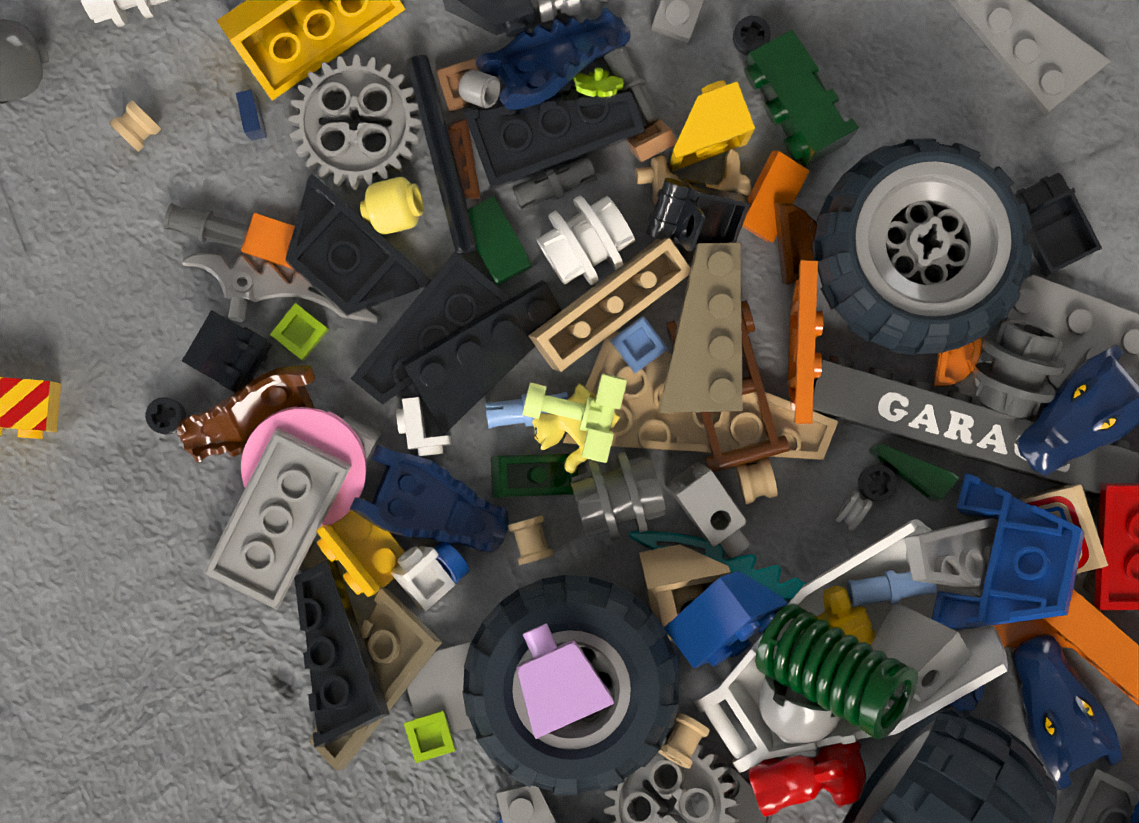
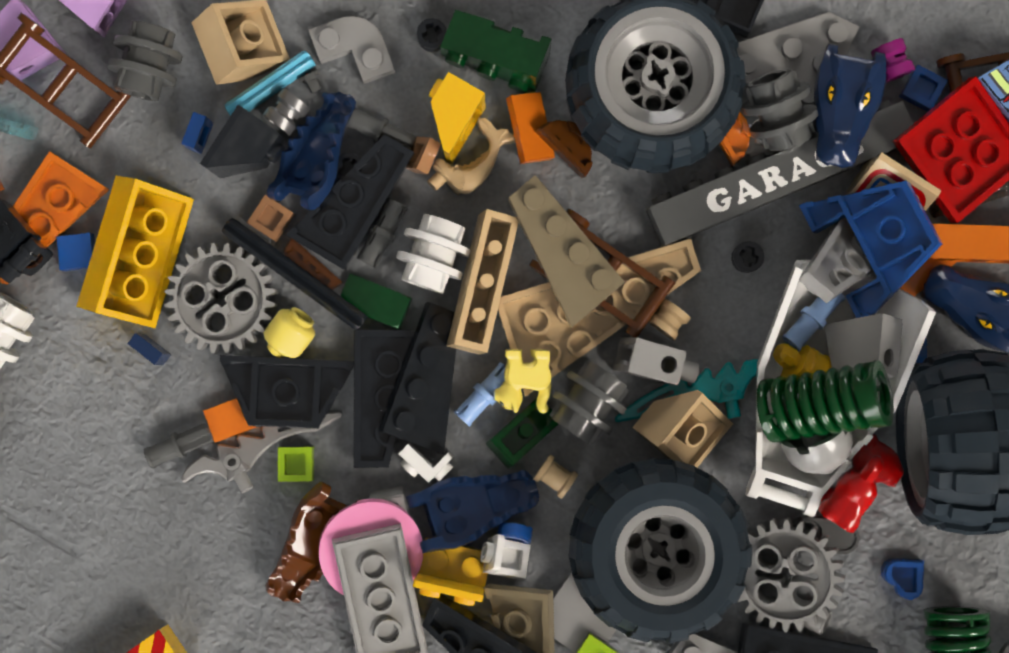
camera: 30 degrees left, 0 degrees up
(135, 126) = (79, 417): tan wheel -> none
(154, 409) = (242, 590): black bush -> none
(227, 352) = (259, 516): black piece -> none
(475, 84) = (279, 211): light grey piece -> none
(558, 683) = (654, 559): lavender torso -> none
(594, 415) = (532, 362): yellowish green bar -> none
(598, 83) = (358, 146): lime plant -> none
(638, 344) = (522, 293): medium blue tile -> none
(683, 740) = (761, 526): tan bush -> none
(696, 214) = (491, 179): black piece -> none
(724, 619) = (723, 426): blue slope -> none
(804, 327) = (620, 196): orange wing -> none
(853, 510) = (747, 287): light grey bush -> none
(924, 477) = (774, 229): dark green slope -> none

